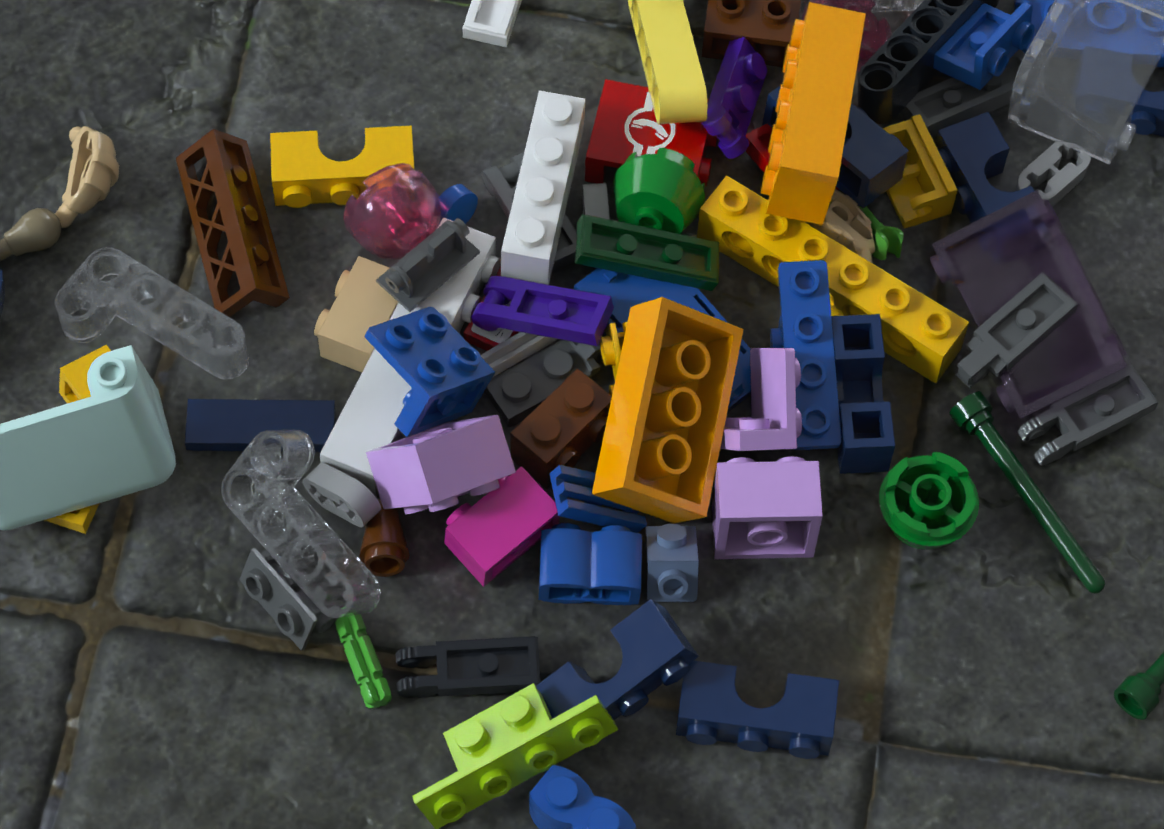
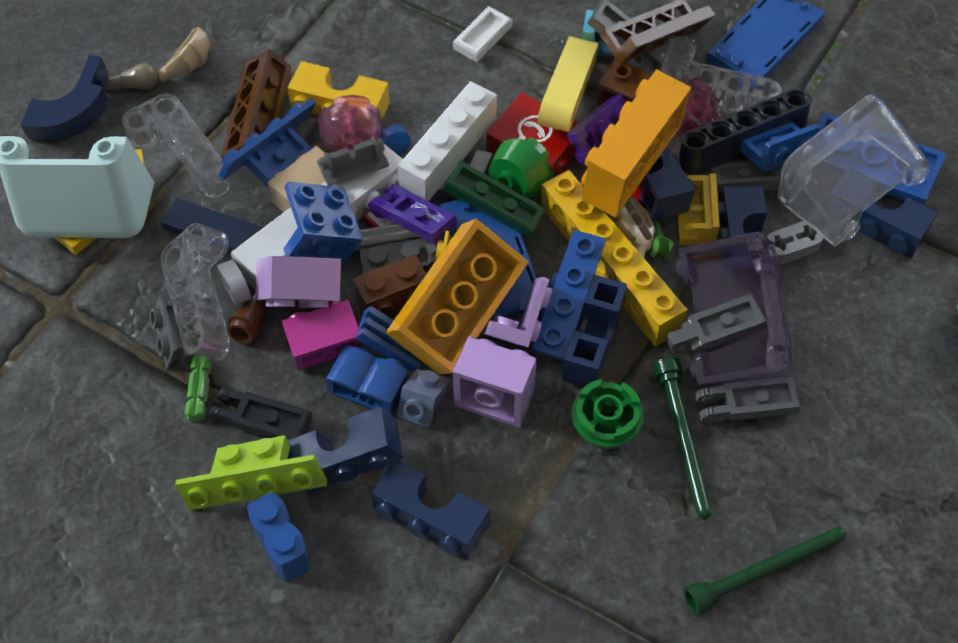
camera: 25 degrees right, 5 degrees down
(302, 282) = (273, 149): none -> blue bracket

